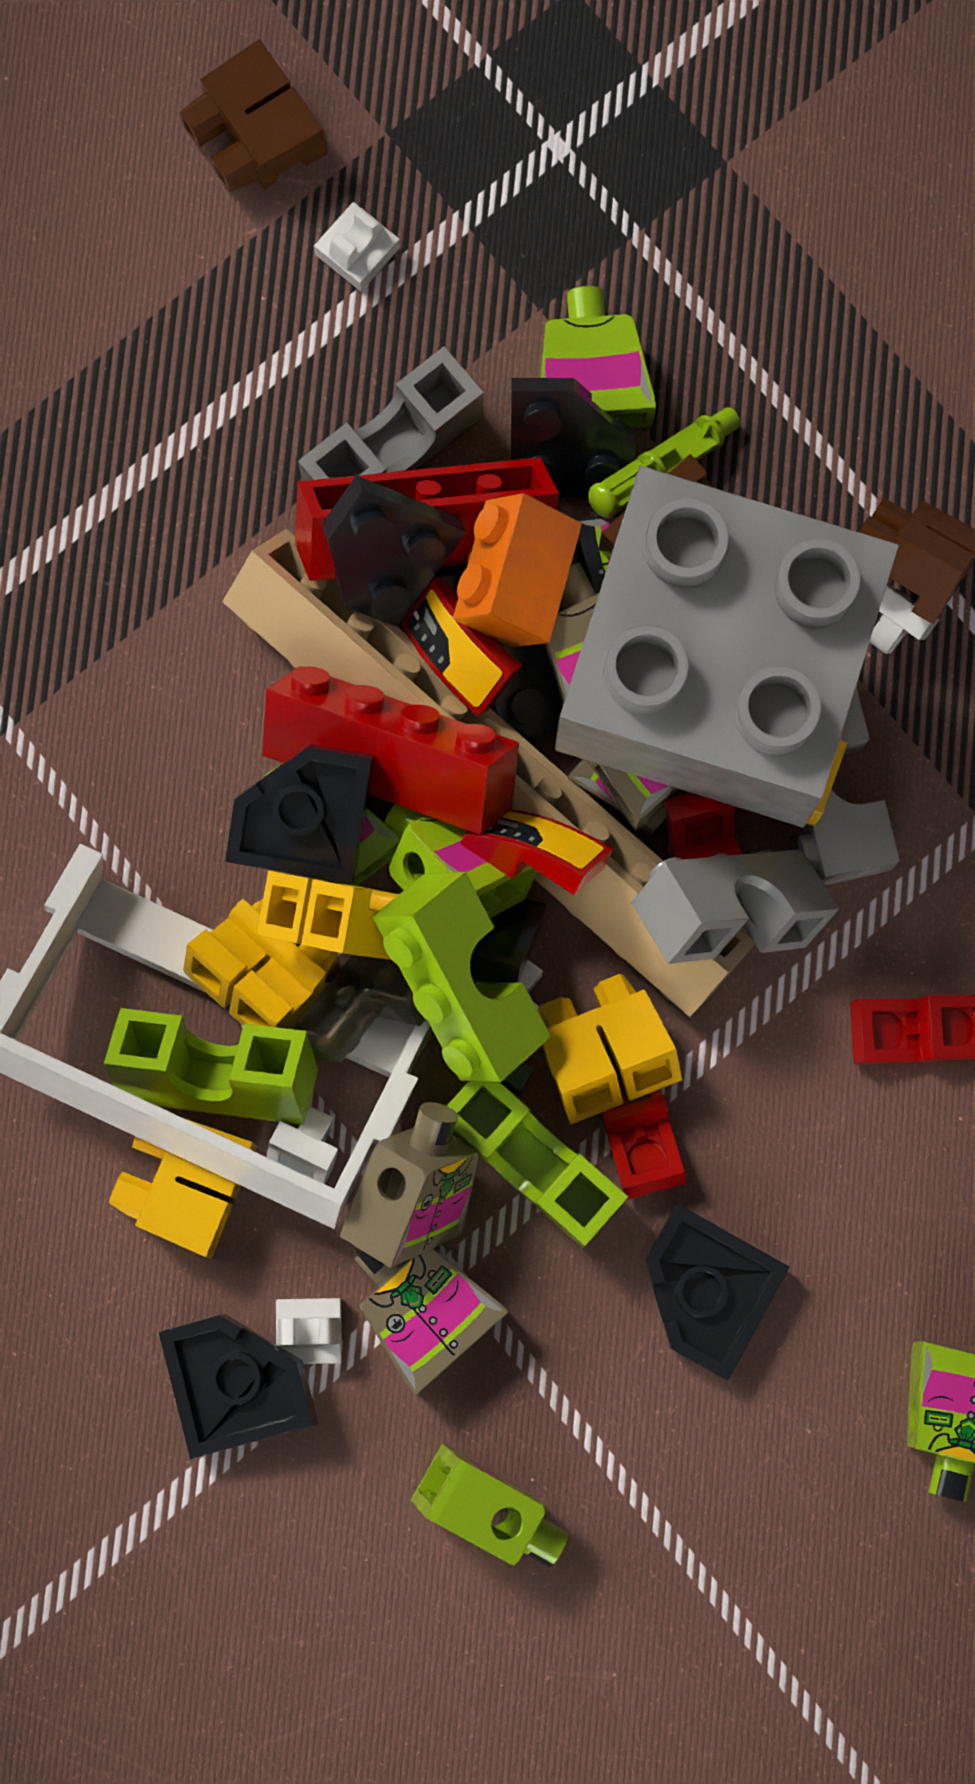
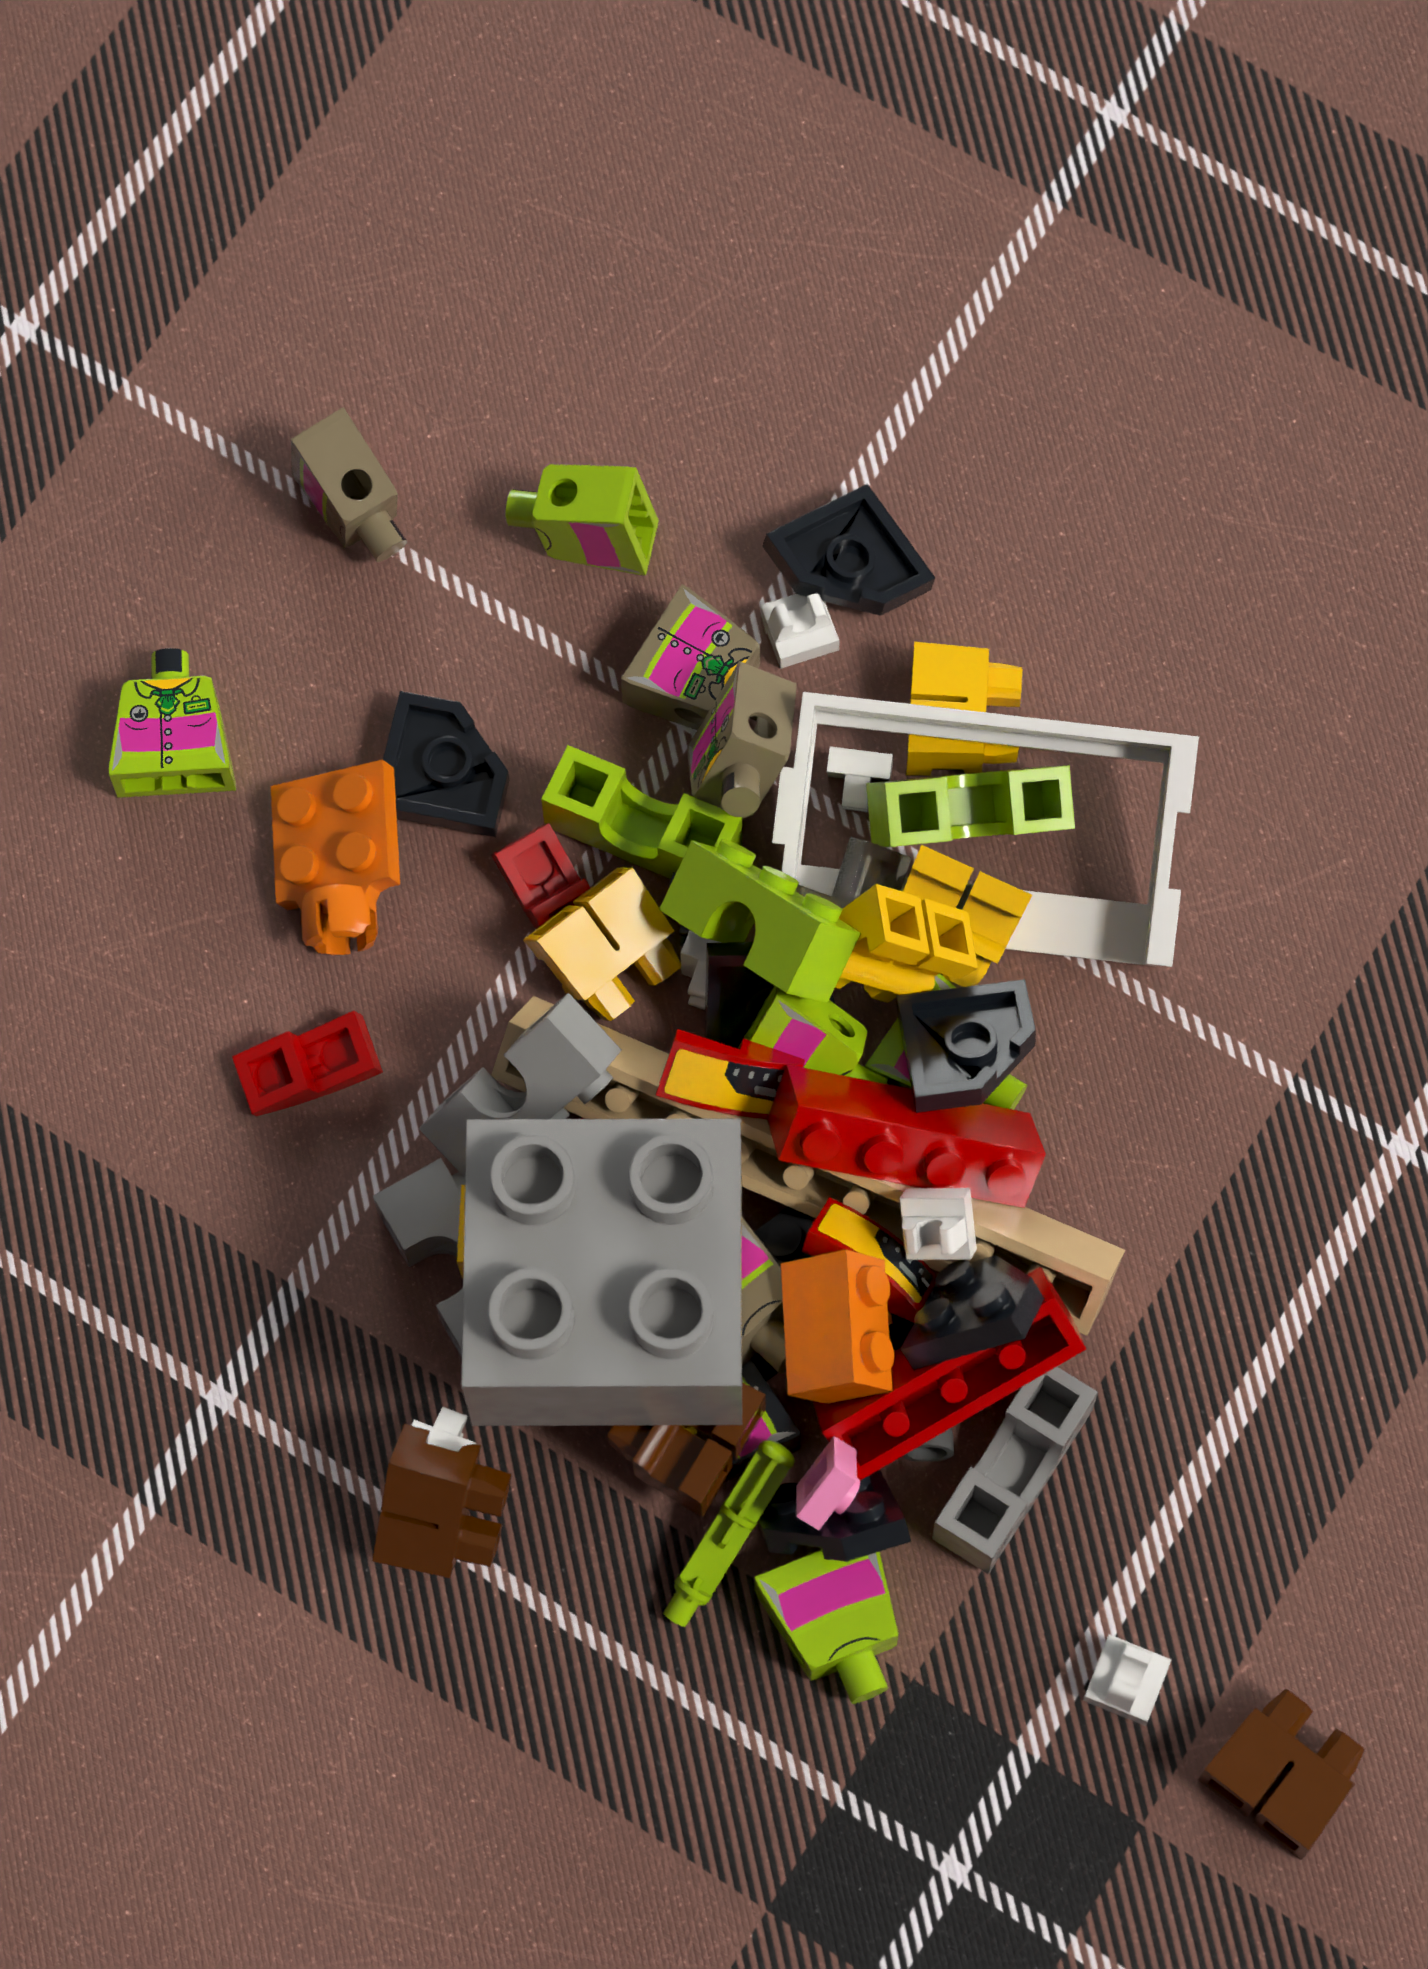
camera: 165 degrees right, 10 degrees down
(390, 647) = (938, 1224): none -> white tile
(569, 446) = (828, 1484): none -> bright pink plate
(724, 1649) = (338, 466): none -> dark tan torso
(837, 1228) = (336, 852): none -> orange plate

